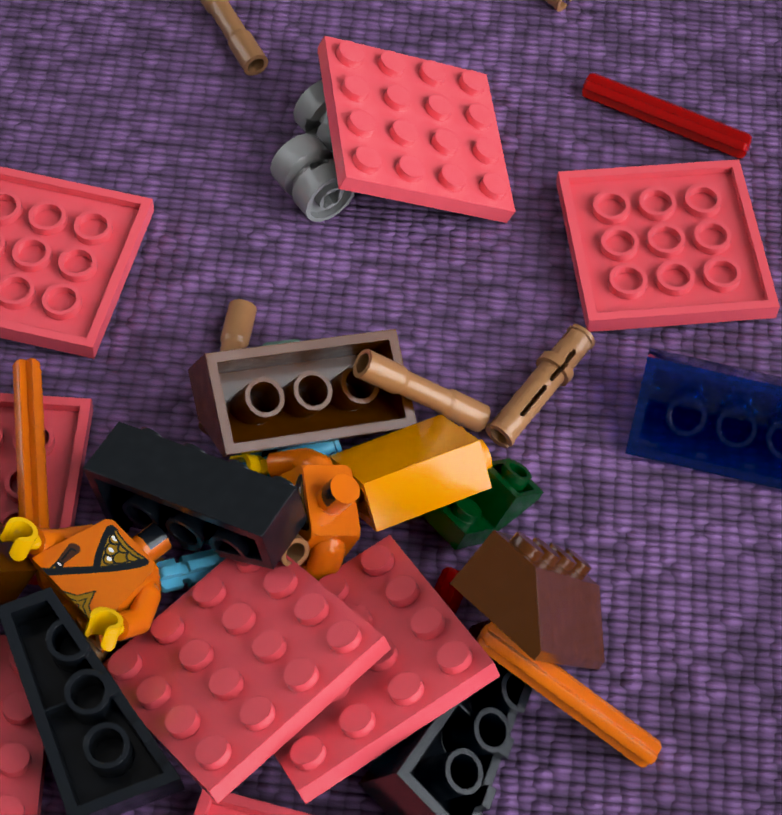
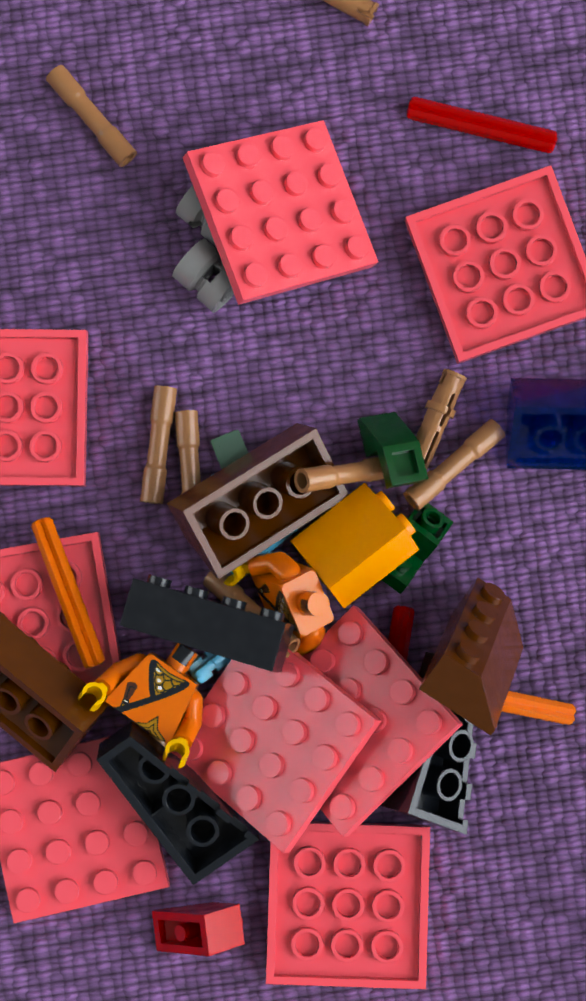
camera: 10 degrees left, 30 degrees up
(210, 309) = (161, 420): none -> medium nougat piece
(489, 387) = (396, 447): none -> dark green slope
(533, 432) = (473, 448): none -> medium nougat piece

